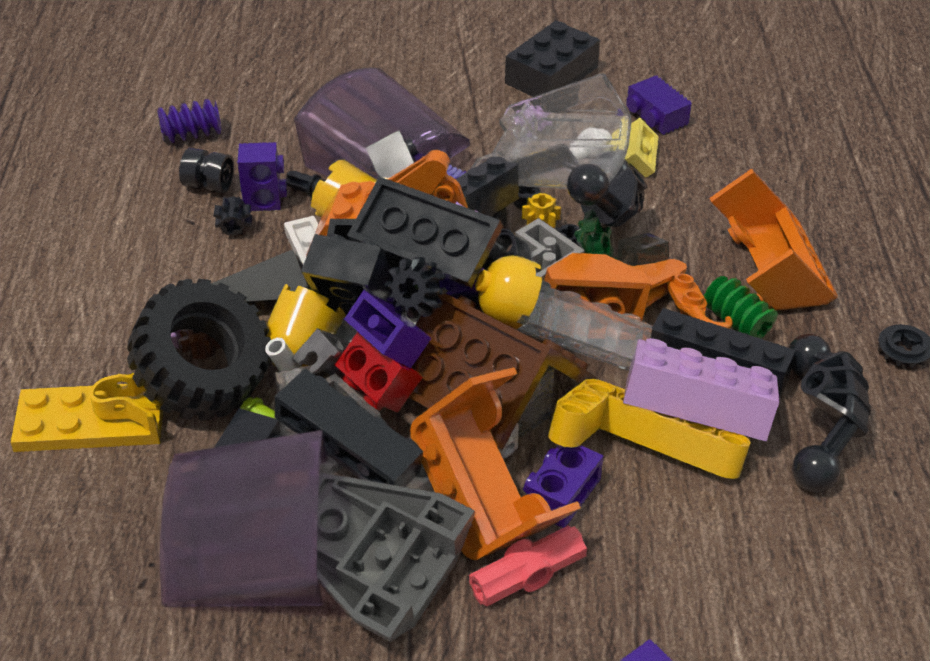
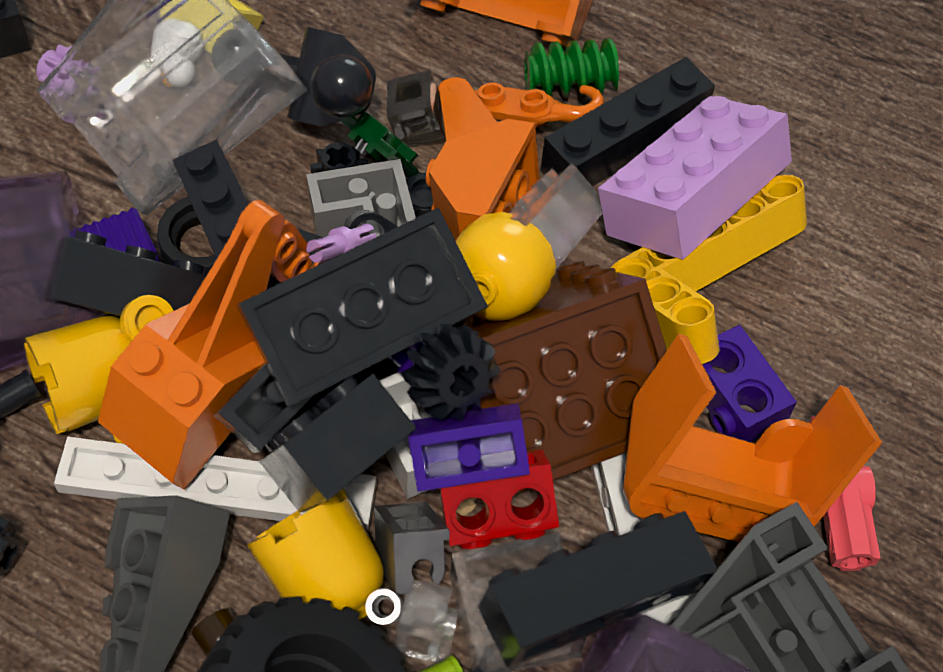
camera: 65 degrees left, 15 degrees up
(541, 207) = (260, 168): yellow gear -> none
(841, 392) = (838, 139): black piece -> none

